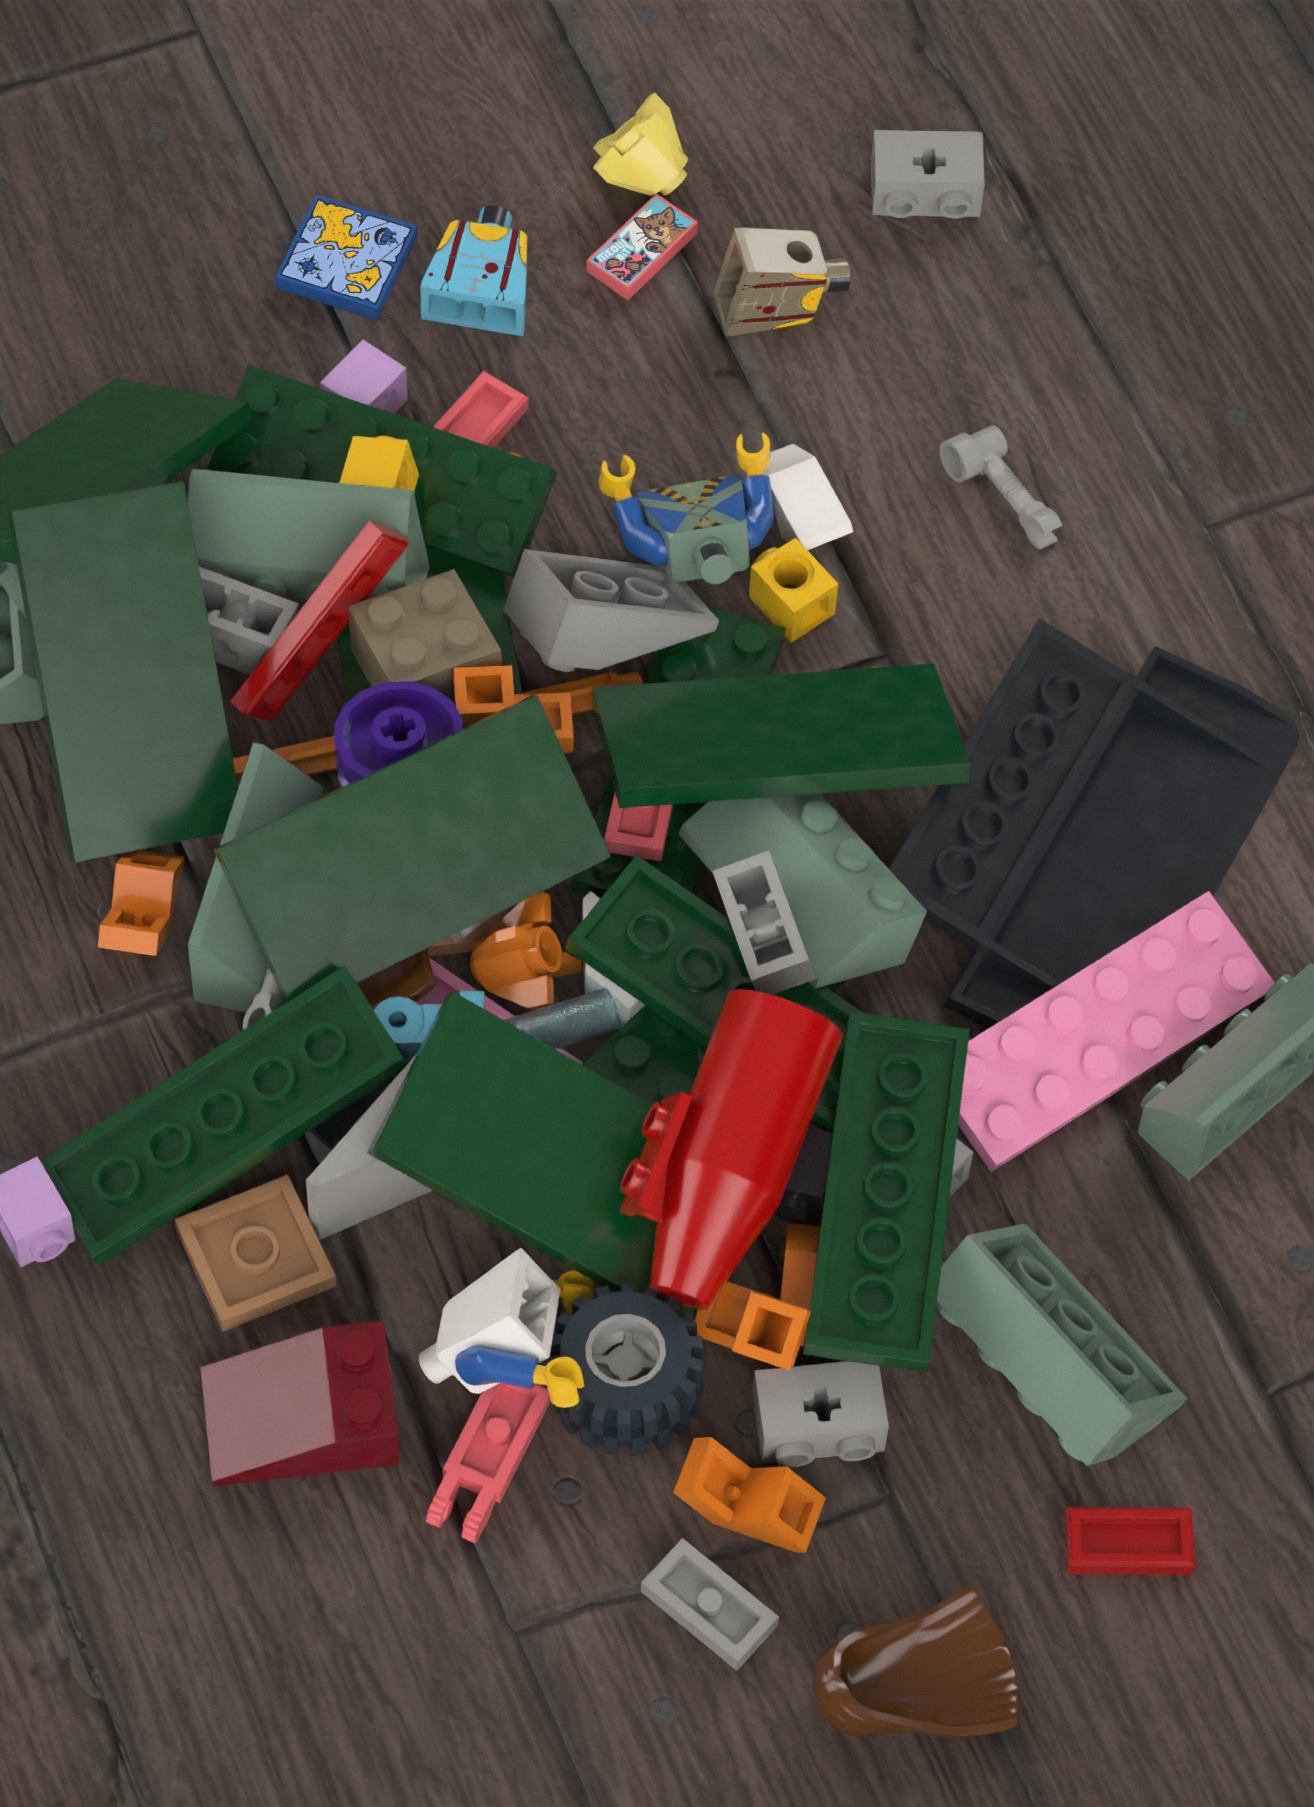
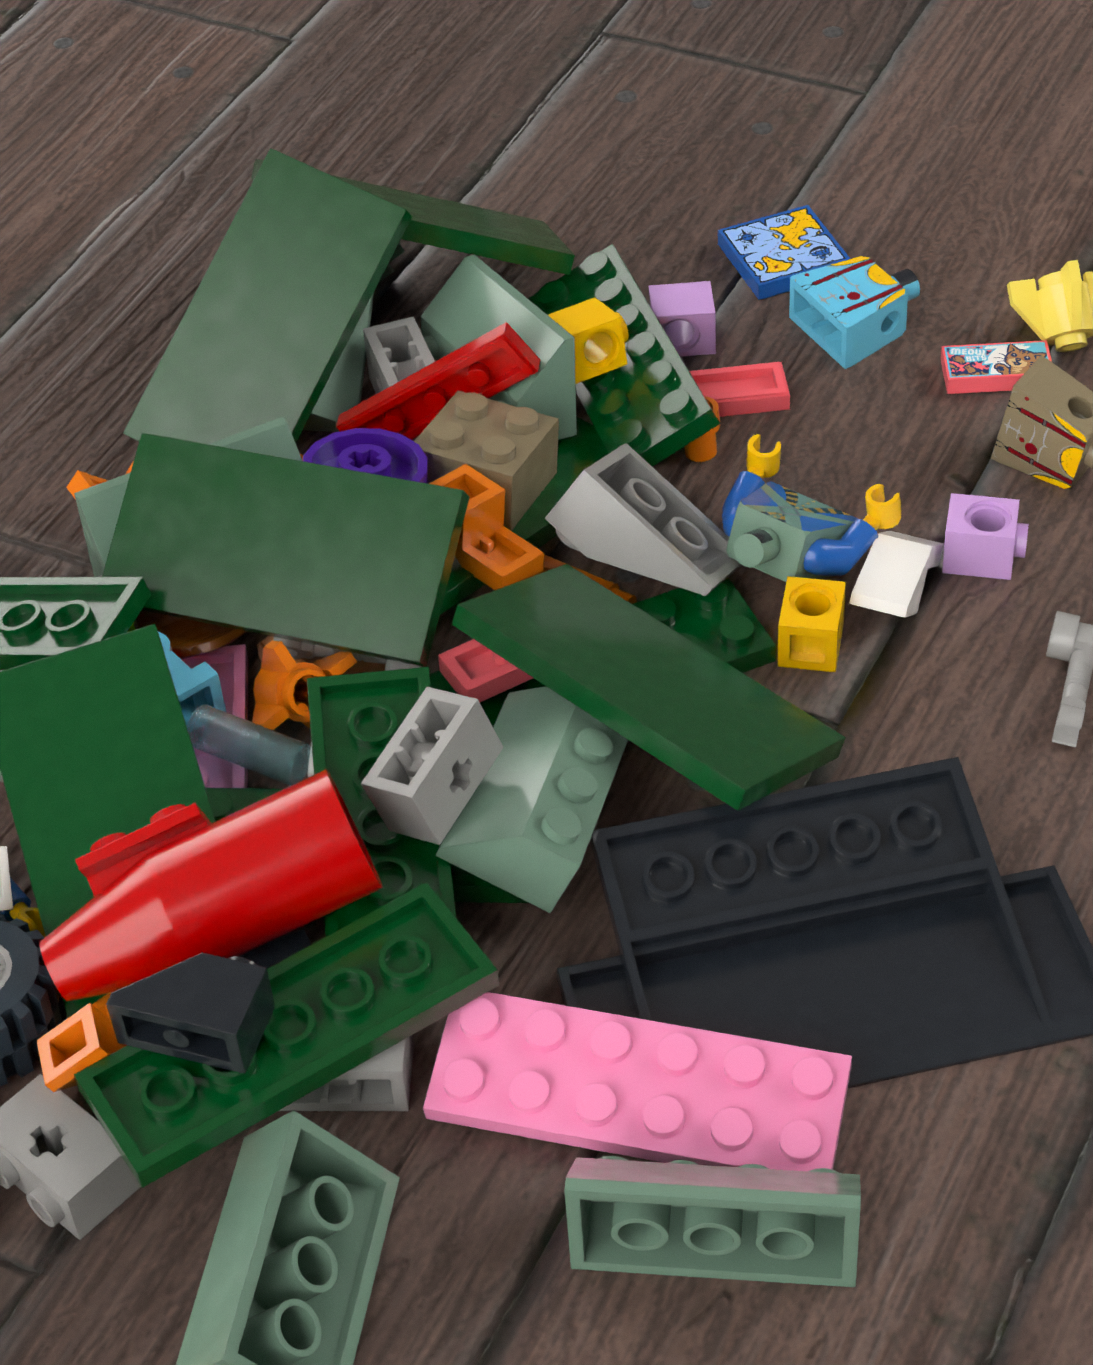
camera: 55 degrees right, 15 degrees down
(819, 435) = (983, 536): none -> lavender brick
(854, 1224) = (197, 1011): none -> black slope

